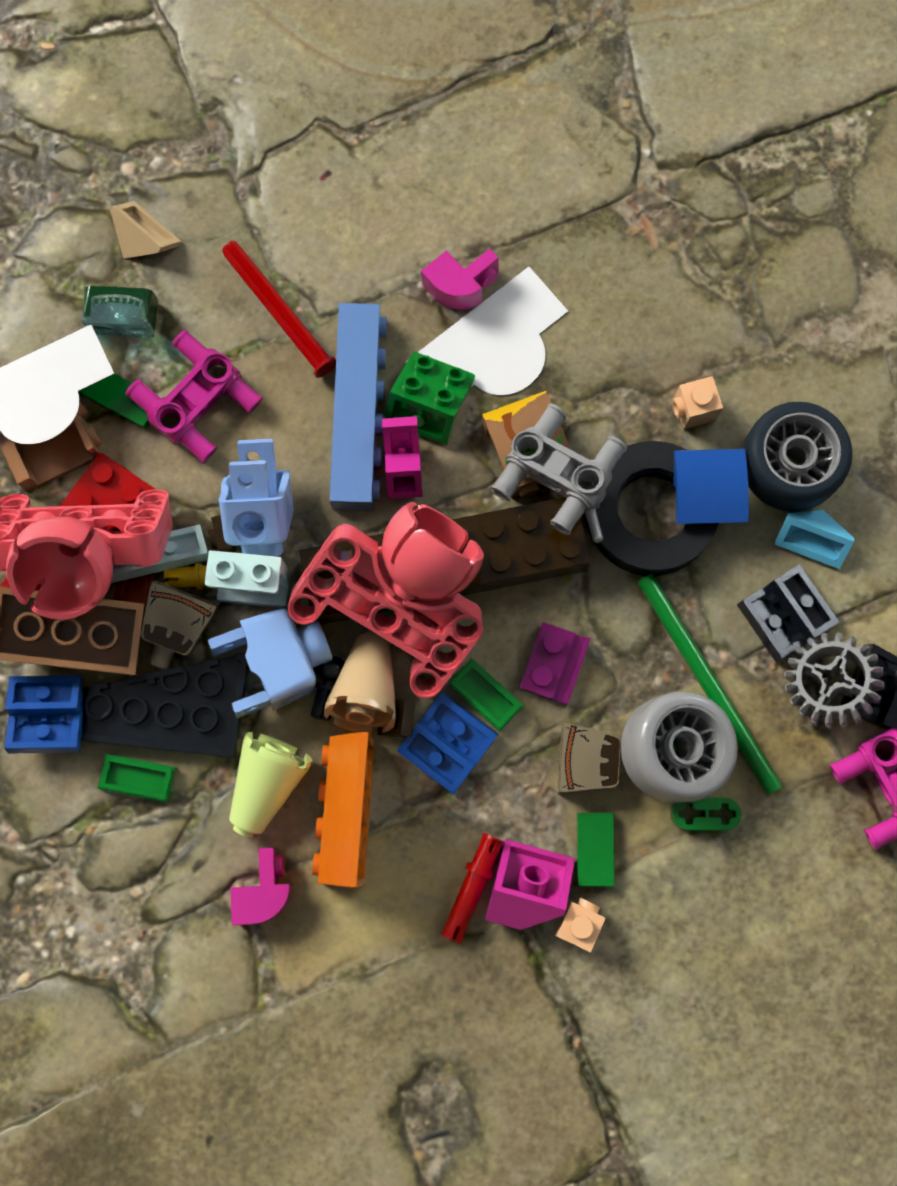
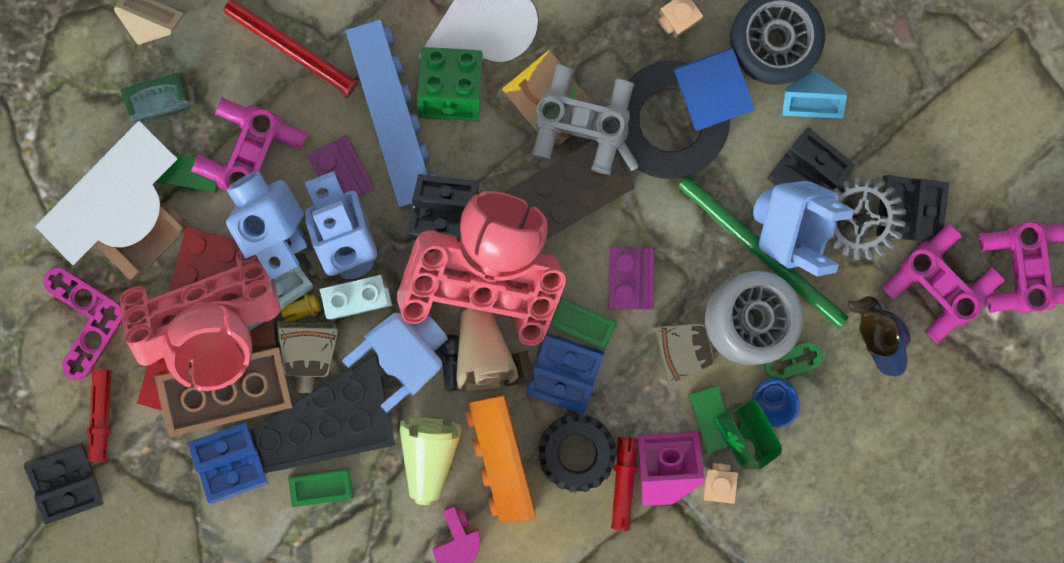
camera: 20 degrees left, 10 degrees up
(180, 466) = (264, 221): none -> light blue piece
(289, 444) = (344, 161): none -> magenta plate
(371, 506) = (439, 205): none -> black slope
(399, 828) = (586, 478): none -> black tyre
(402, 457) = (446, 147): dark pink brick -> none
(645, 886) = (761, 435): none -> green piece
(673, 853) = (778, 401): none -> blue hair
(761, 660) = (798, 224): none -> light blue piece
(817, 818) = (883, 334): none -> dark brown hair

